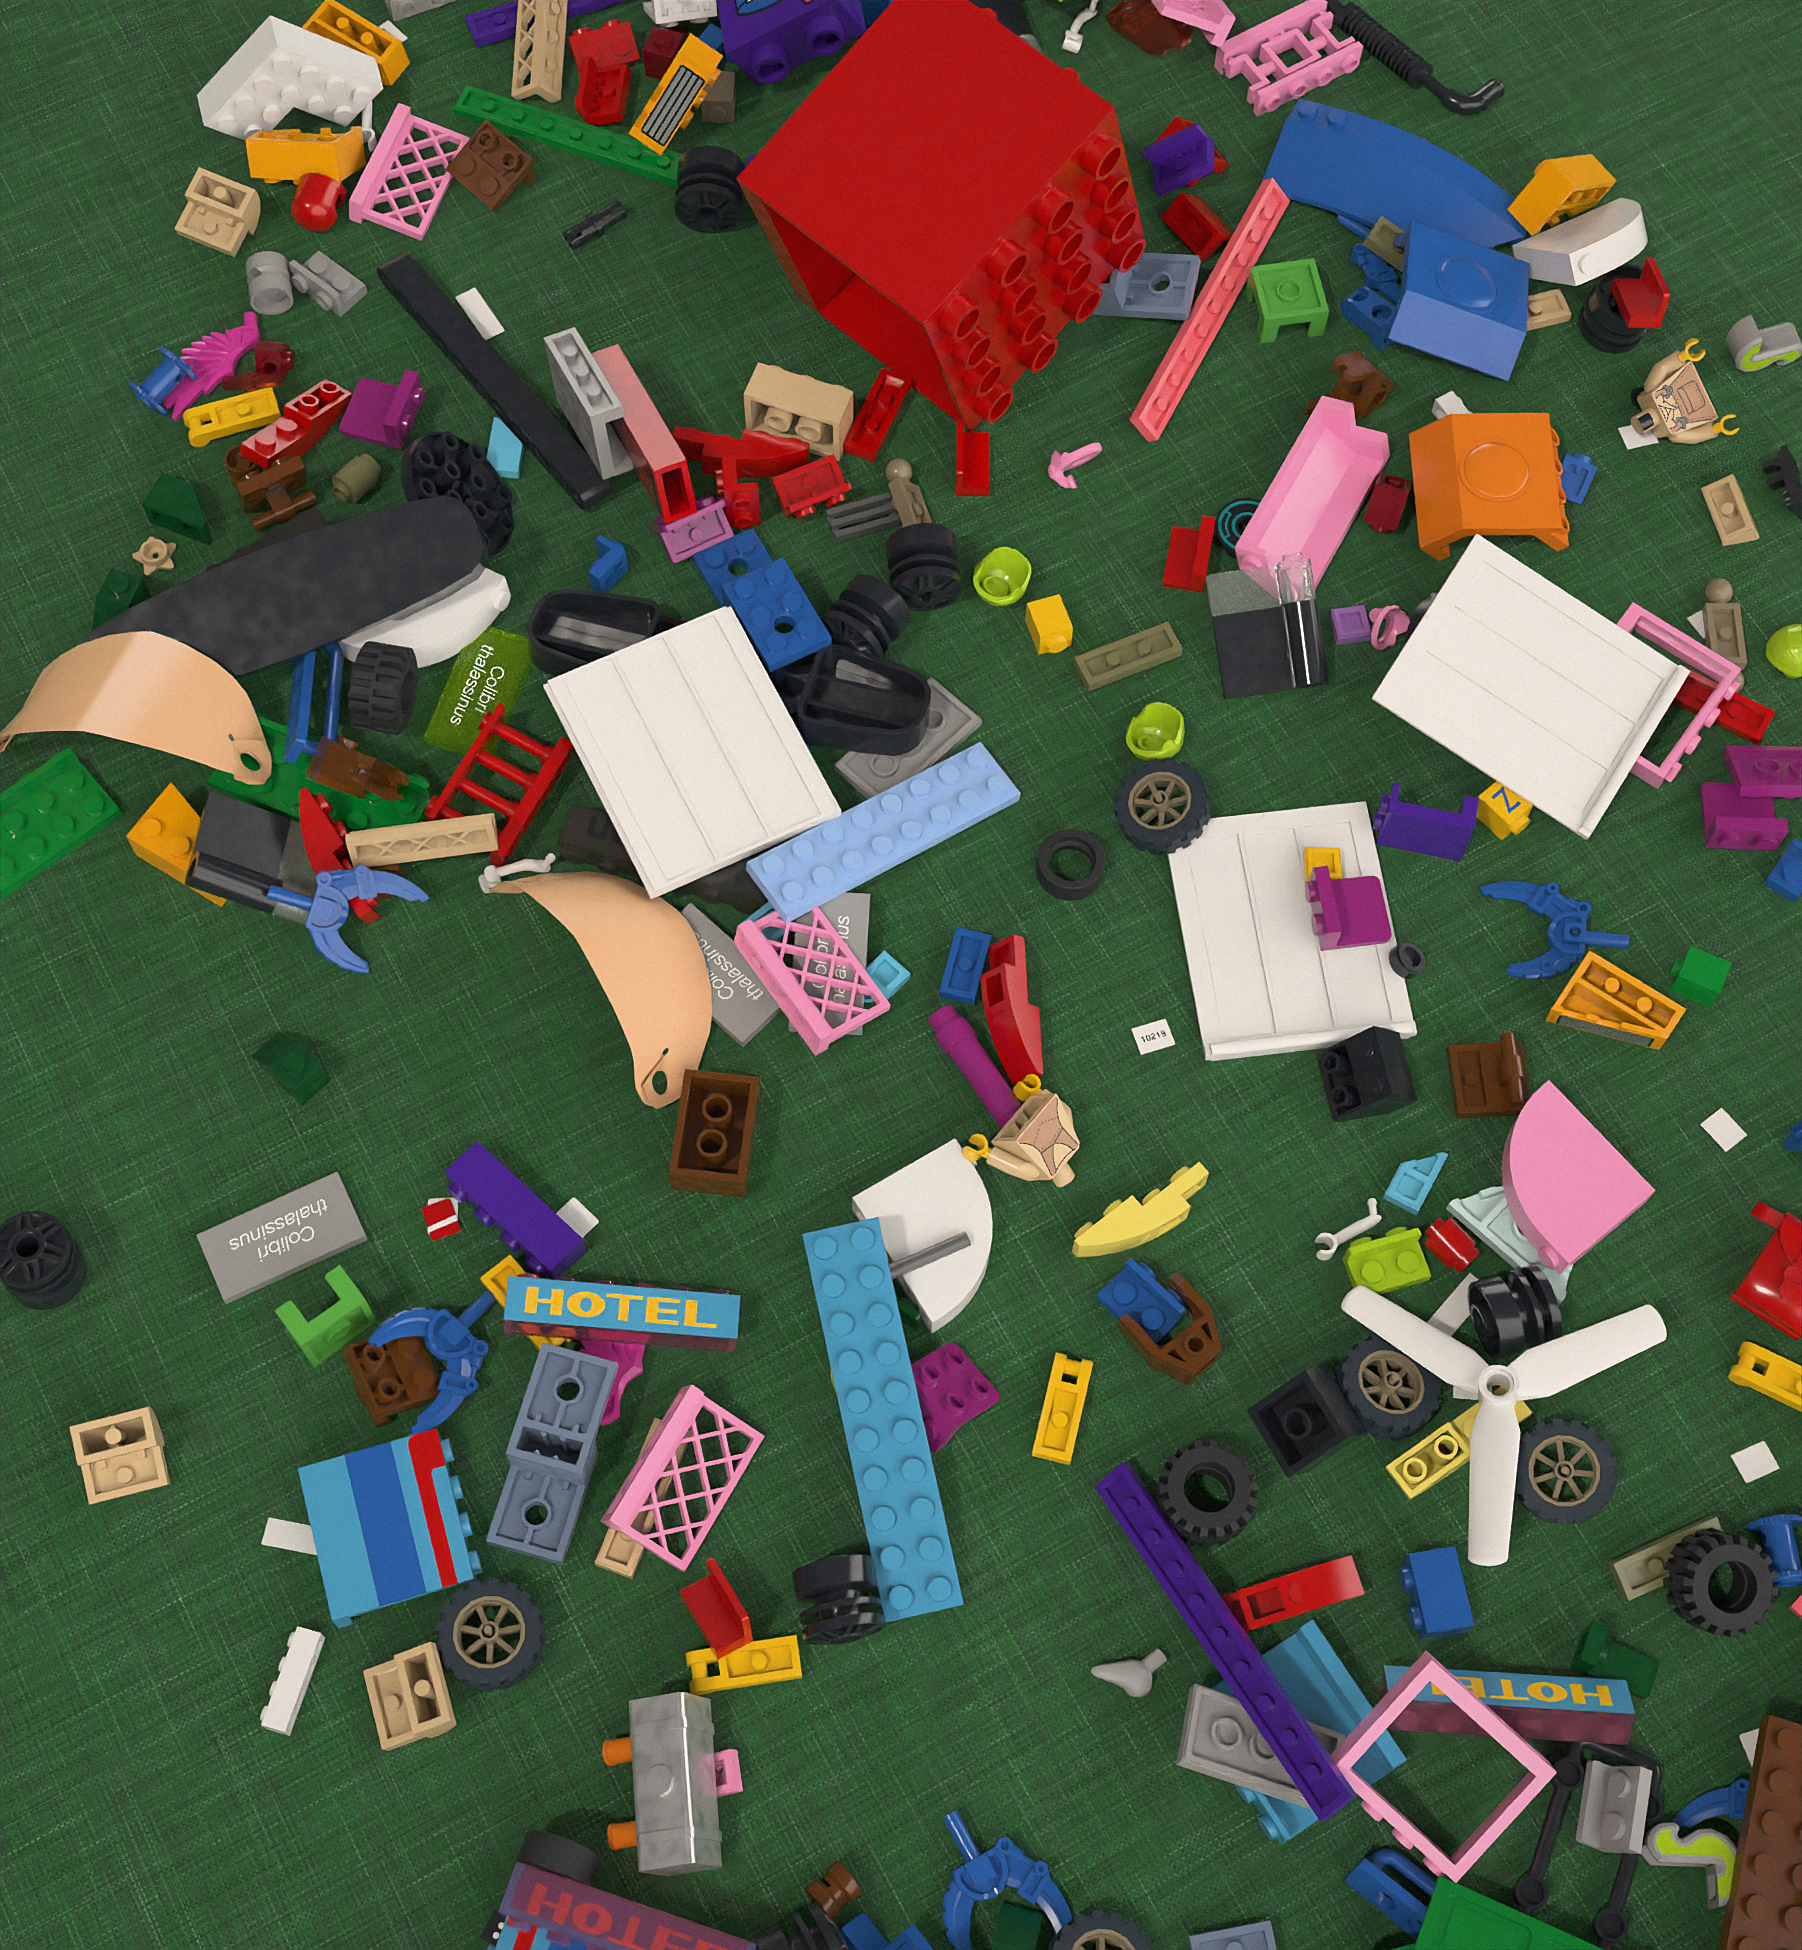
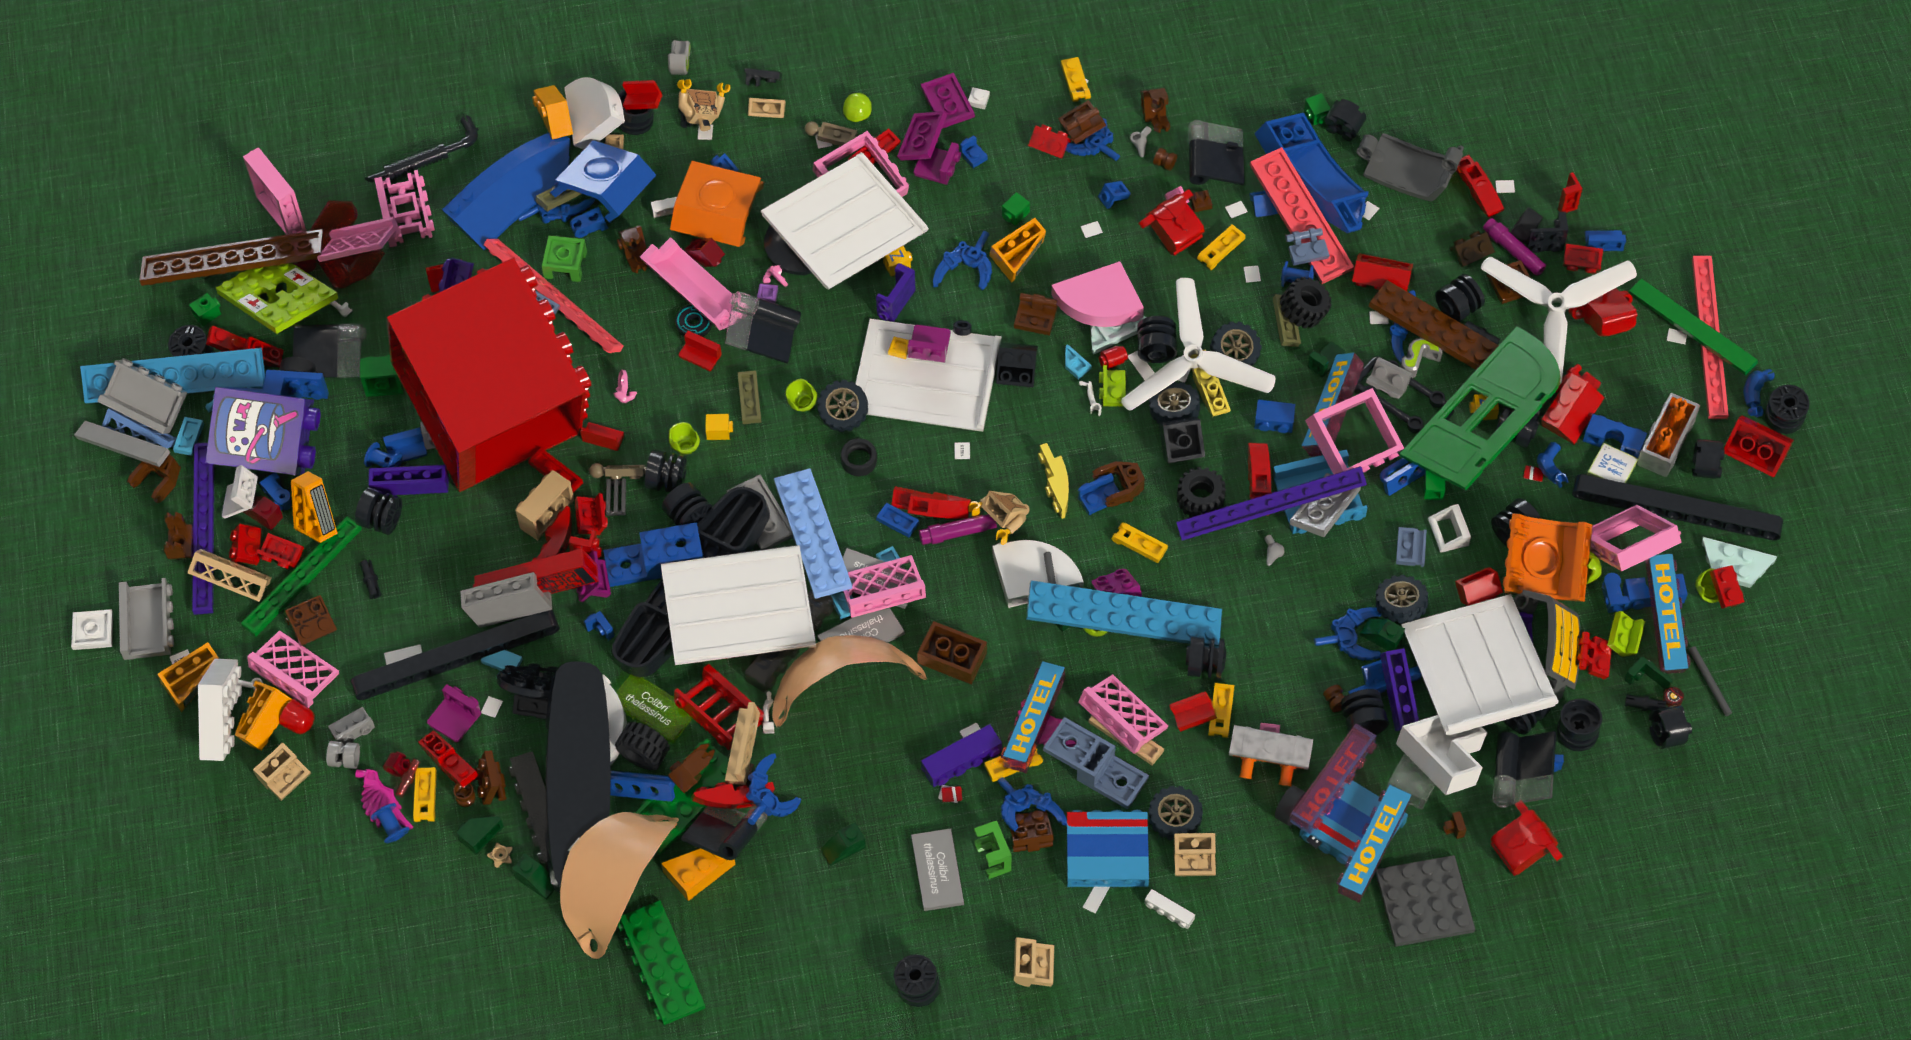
camera: 70 degrees left, 5 degrees down
(356, 478) = (494, 738): olive brick -> none

